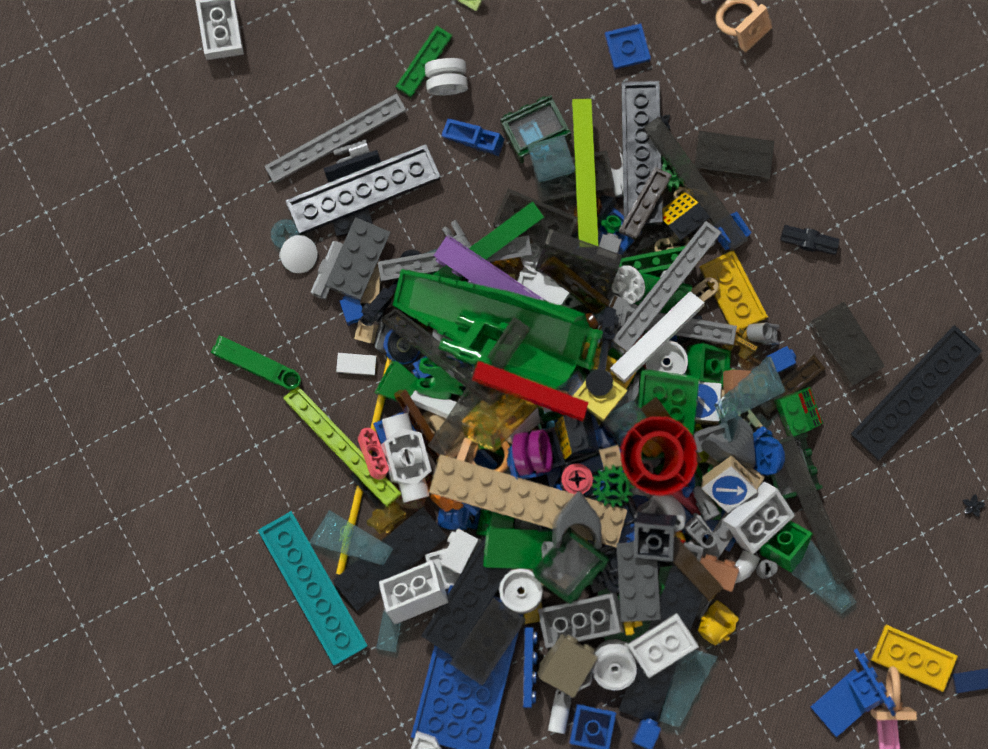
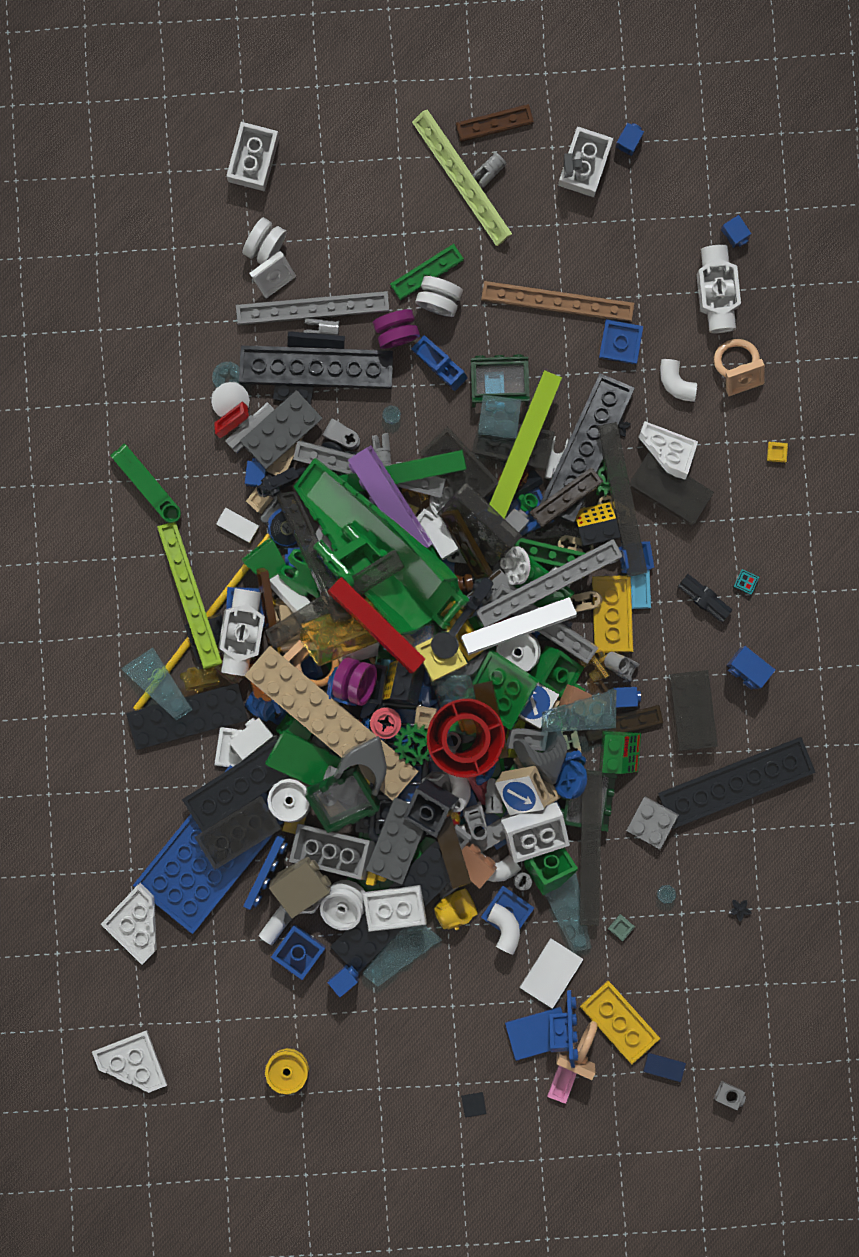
camera: 30 degrees right, 5 degrees up
(262, 97) = (264, 241): none -> white wheel
(286, 123) = (272, 274): none -> white tile
(308, 270) = (231, 420): none -> red piece
(312, 588) = (106, 711): teal plate -> none
(371, 461) = (208, 621): coral beam -> none
(388, 634) = (157, 781): clear light blue tile -> none
(410, 239) = (339, 433): none -> light grey piece
(413, 592) = (192, 757): white brick -> none
(420, 122) = (396, 329): none -> magenta wheel
(451, 202) = (391, 415): none -> clear light blue tile
(553, 36) = (557, 301): none -> medium nougat tile
(691, 61) = (674, 384): none -> white cylinder
(716, 120) = (669, 449): none -> white plate
(749, 259) = (641, 591): none -> medium azure tile
(765, 604) = (511, 902): none -> blue plate
(773, 615) = (509, 928): none -> white cylinder
(812, 82) = (777, 452): none -> yellow tile
(831, 641) = (551, 973): none -> white tile
(839, 209) = (746, 582): none -> teal tile
(858, 462) = (652, 822): none -> light grey plate
(874, 571) = (621, 927): none -> sand green tile
(880, 283) = (750, 668): none -> blue brick
(901, 521) = (666, 894): none -> clear light blue tile

